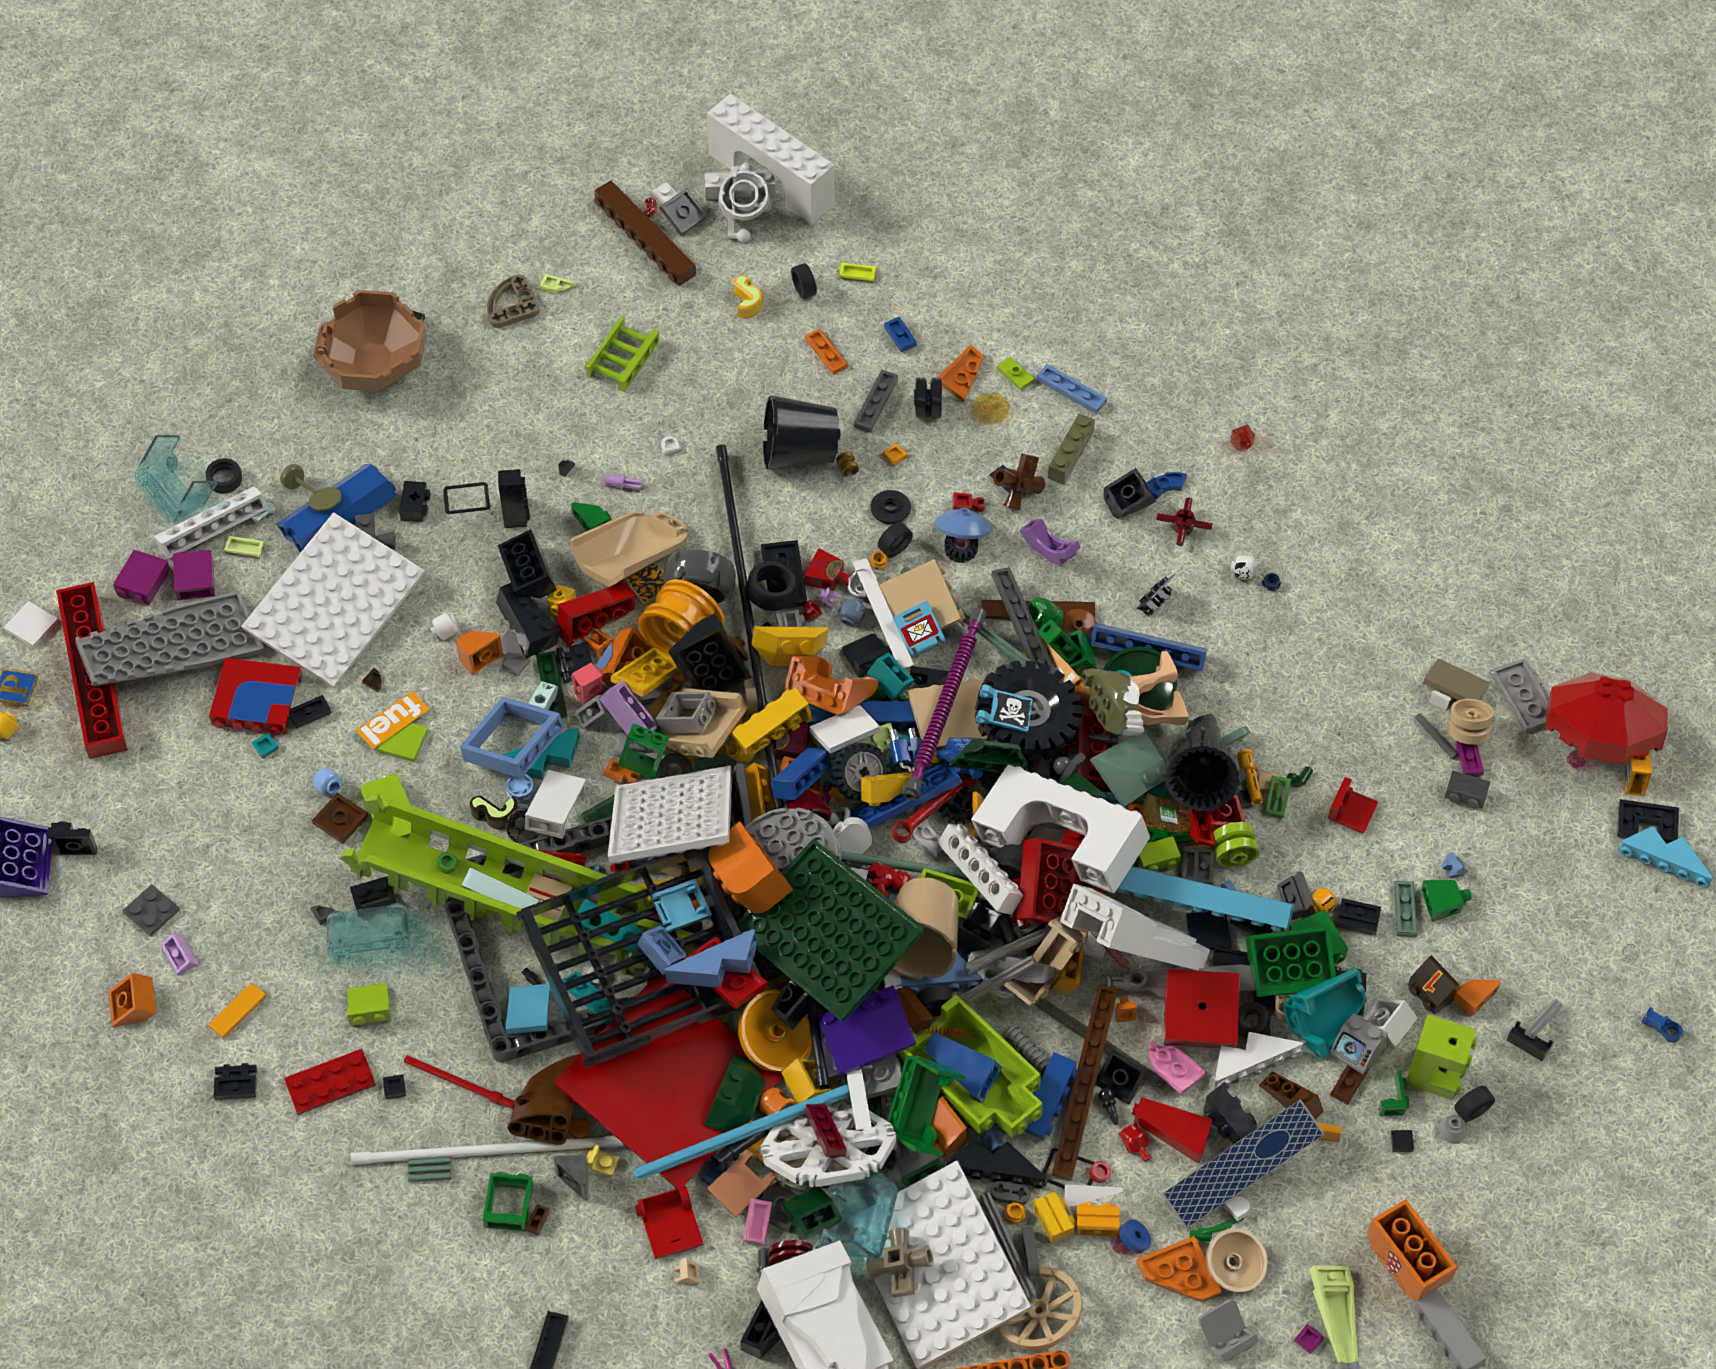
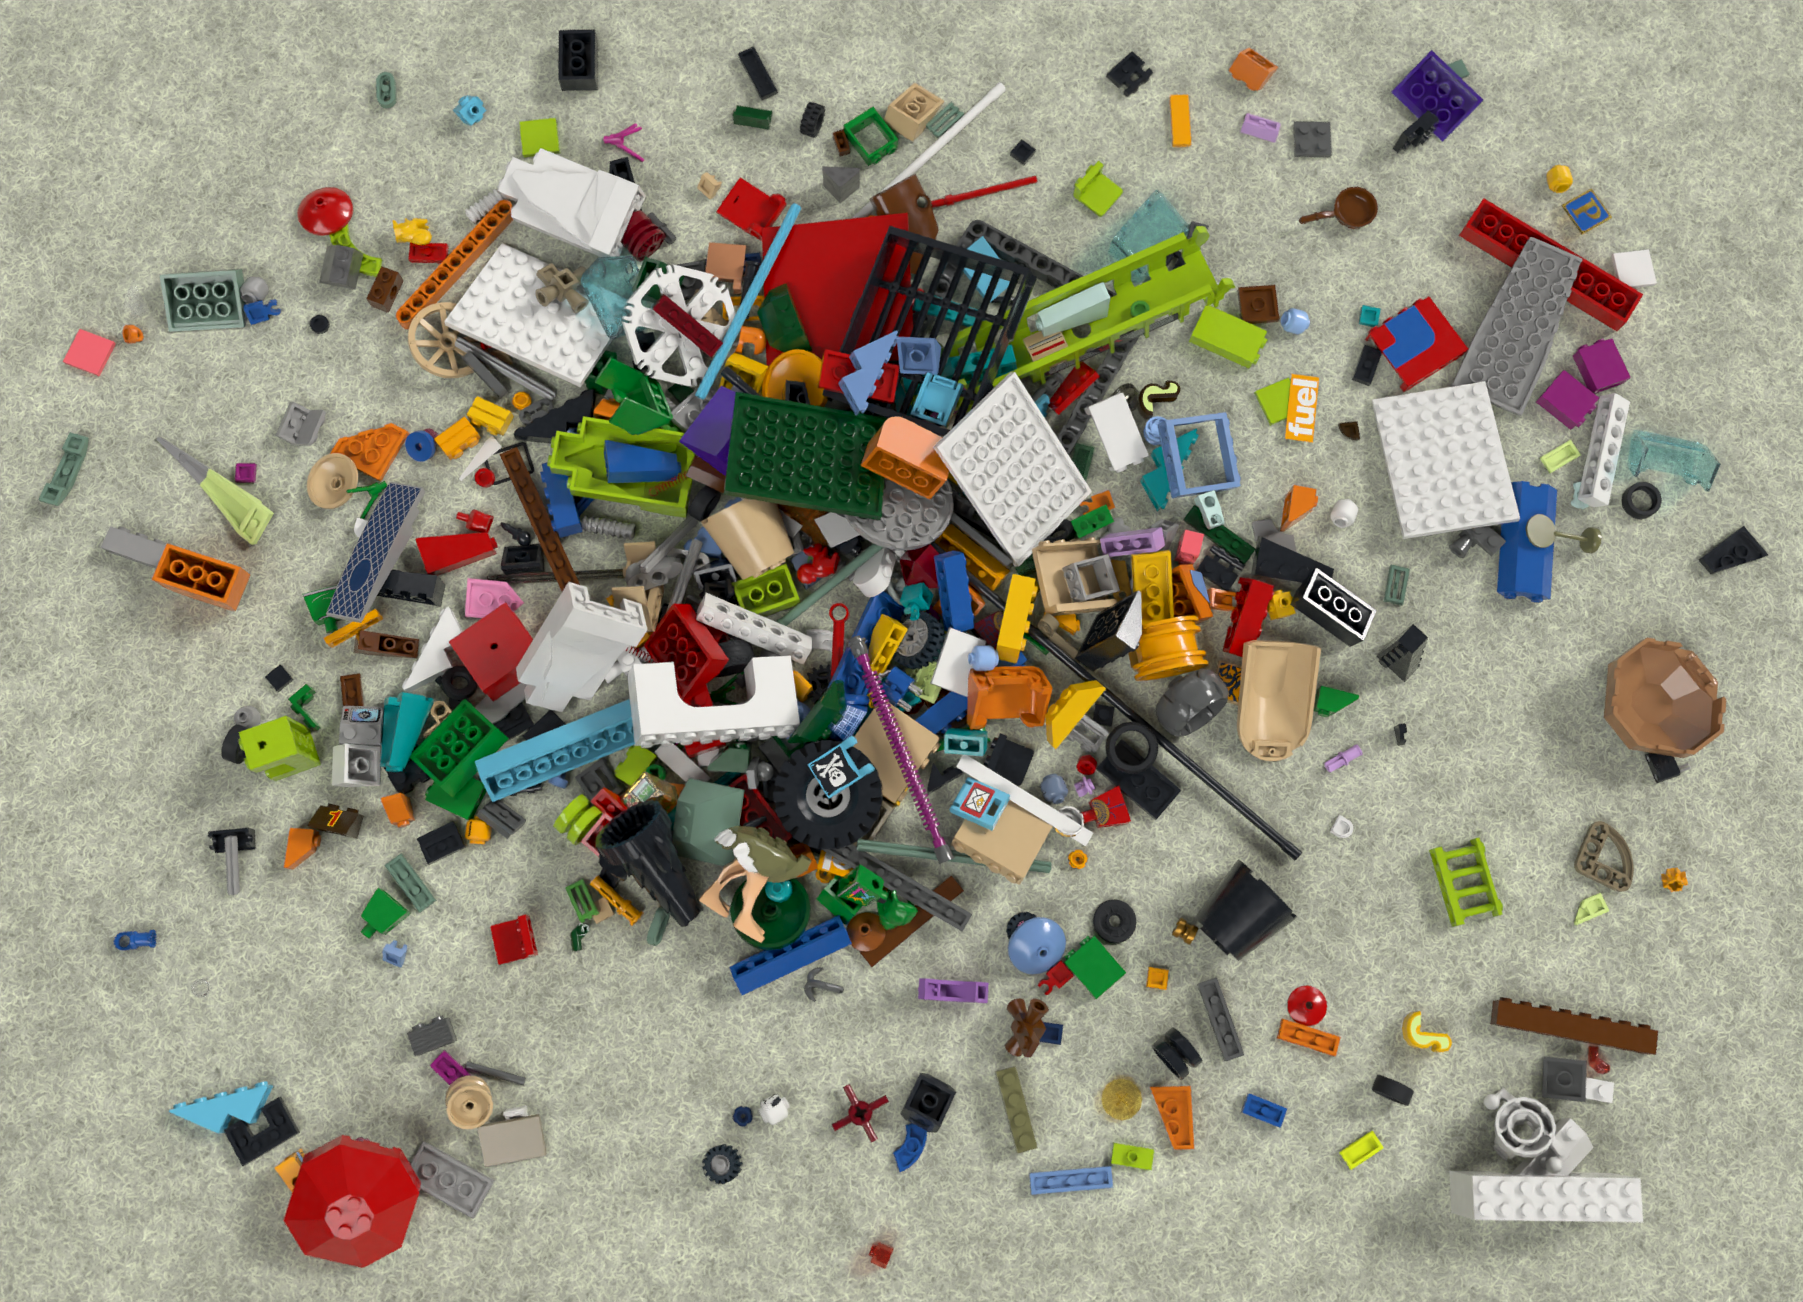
camera: 135 degrees right, 20 degrees up
(187, 826) = (1353, 208): none -> reddish brown piece
(200, 400) = (1733, 551): none -> black wing
(329, 1081) = (1069, 124): red plate -> none
(413, 501) = (1489, 601): black brick -> none
(449, 1195) = (912, 111): none -> tan slope
(461, 559) = (1393, 600): none -> sand green tile
(463, 486) = (1460, 650): black piece -> none
(483, 256) = (1674, 879): none -> light orange gear
(545, 1252) = (812, 119): none -> black tyre
(592, 1306) = (752, 117): none -> dark green panel
(602, 1162) = (835, 212): light yellow bracket -> none
(739, 643) = (1112, 674): reddish brown dish -> none
(757, 1221) = (692, 252): bright pink plate -> none
(809, 374) = (1297, 1005): none -> red dish
(824, 710) = (983, 658): none -> light blue head
(834, 795) = (916, 598): none -> teal brick
(858, 1099) = (689, 376): white sticker -> none
(895, 539) = (1078, 883): black tyre -> none
(934, 488) = (1094, 966): none -> green panel
(1144, 615) = (811, 982): none -> dark grey piece
(1158, 594) = (826, 1020): black hinge -> none
(1311, 562) = (722, 1164): none -> black wheel
(1319, 1164) = (318, 604): none -> green torso
(1374, 960) = (398, 809): none -> orange slope

